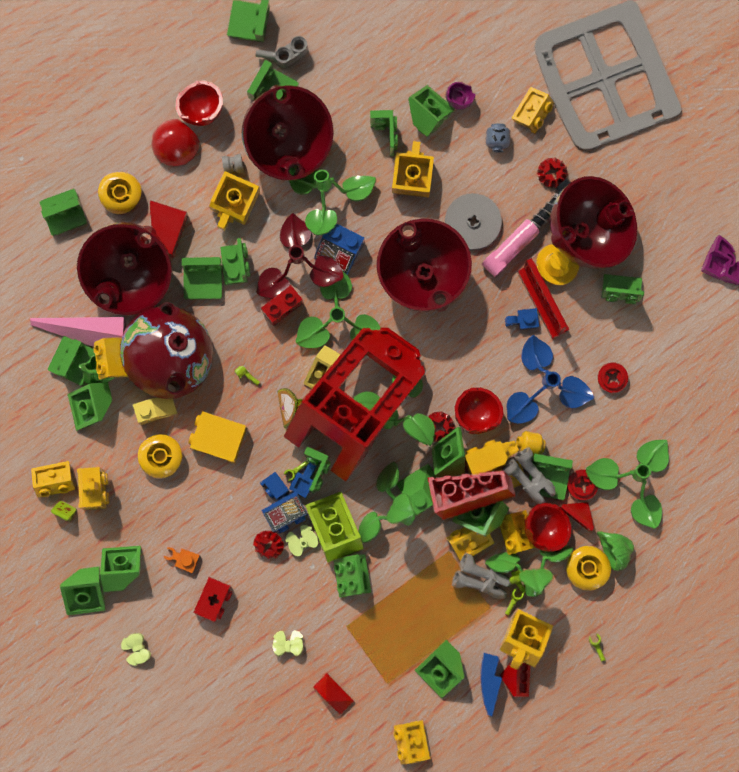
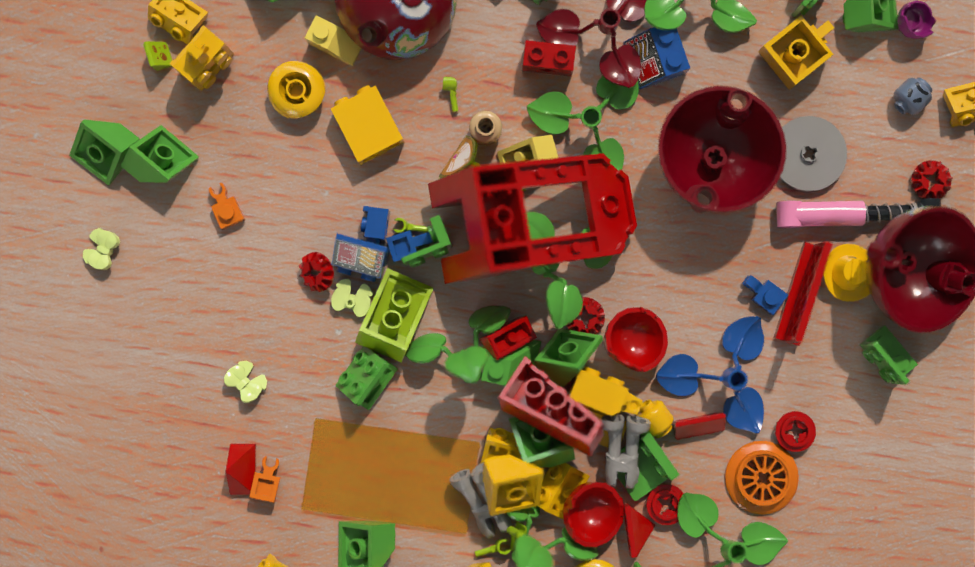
camera: 45 degrees right, 5 degrees up
(212, 588) = (200, 273): red brick -> none
(284, 369) = (487, 119): none -> tan head
(354, 689) = (265, 485): none -> orange plate
(409, 477) = (509, 337): none -> red slope
(488, 553) = (511, 484): none -> yellow slope
(558, 425) = (699, 425): none -> red slope
(612, 439) = (734, 477): none -> orange piece

